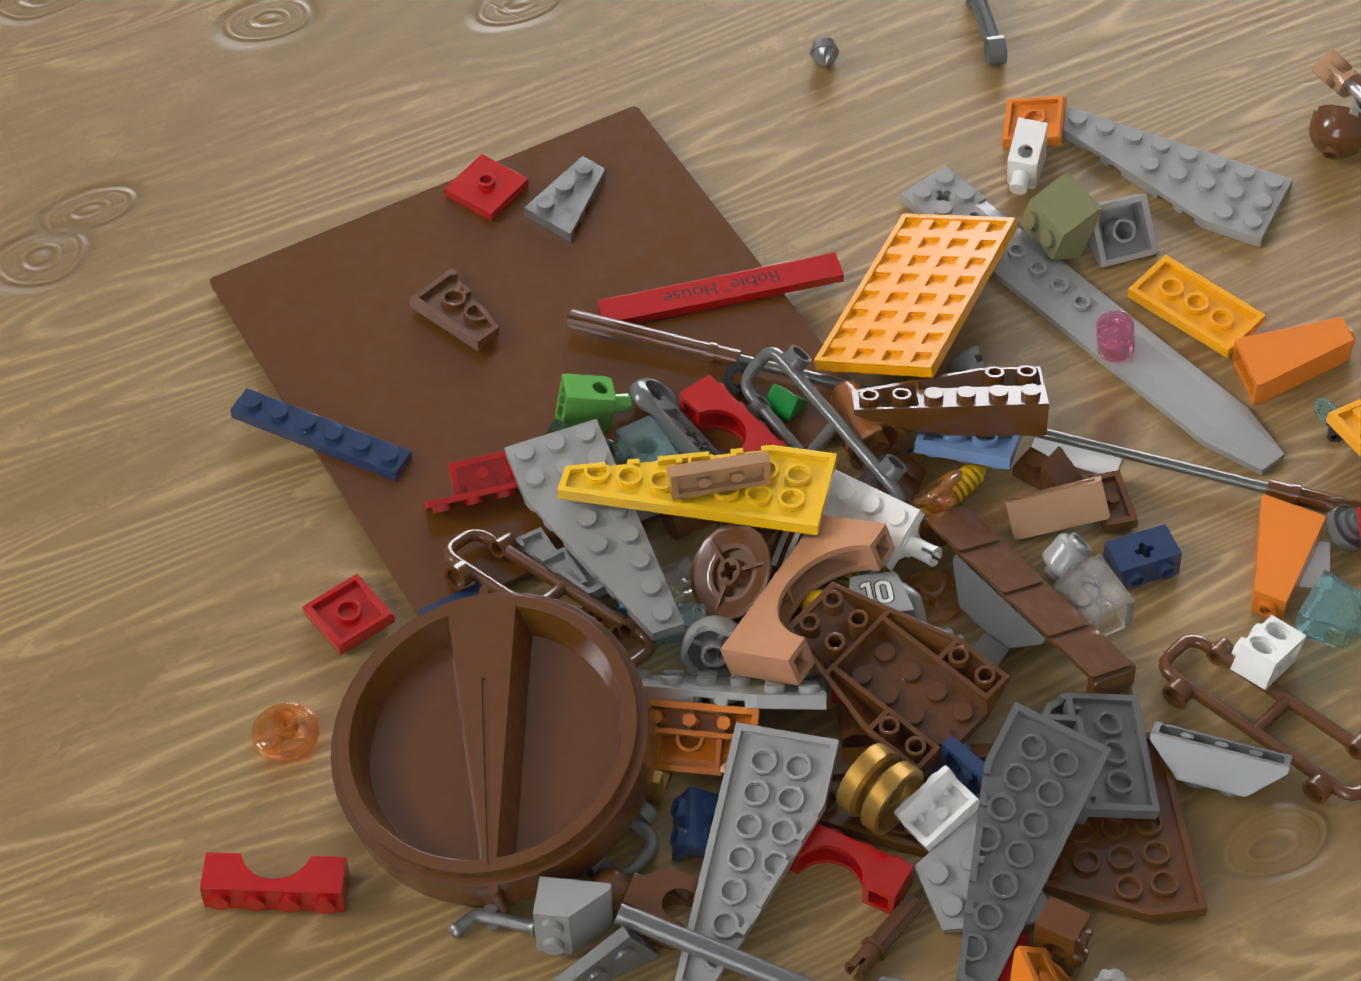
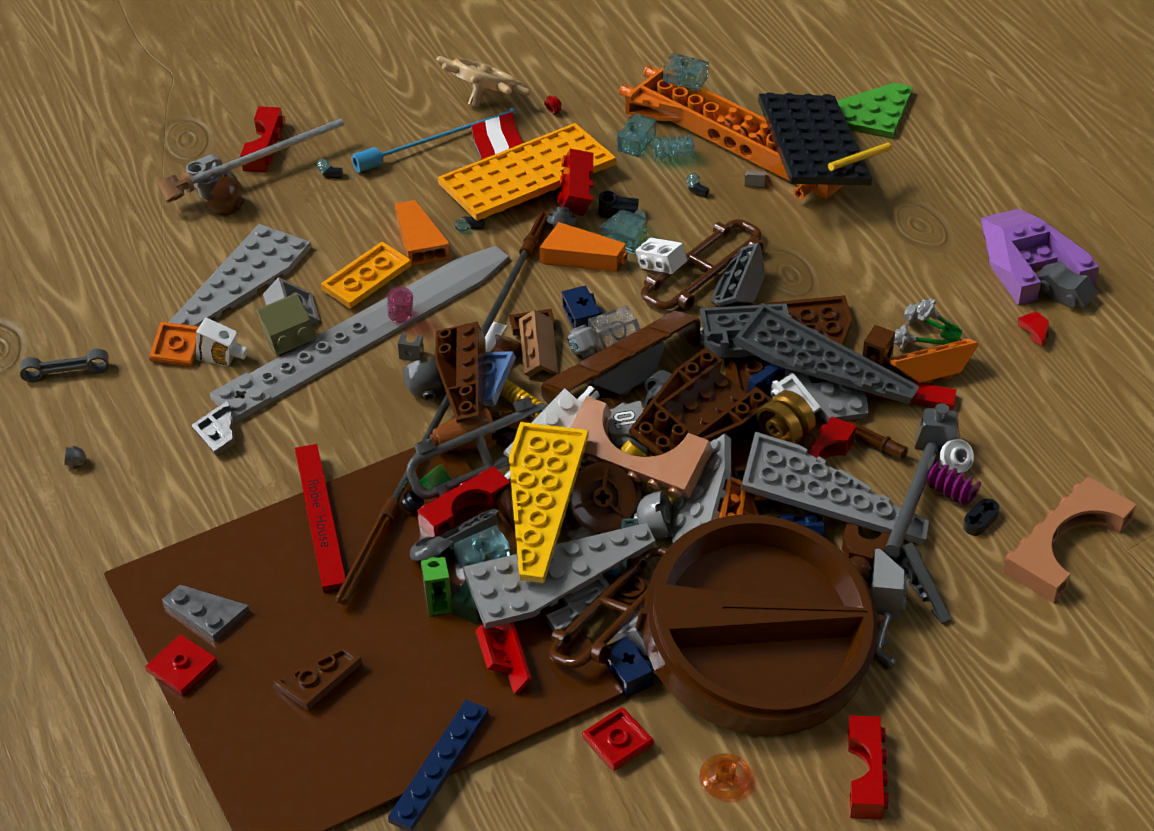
camera: 90 degrees left, 5 degrees down
(719, 475) = (538, 481): medium nougat panel -> none
(875, 178) = (216, 429): none -> wing
(916, 295) = (352, 397): light orange plate -> none
(938, 493) = (536, 391): clear orange piece -> none
(1047, 364) = (410, 351): none -> dark grey piece

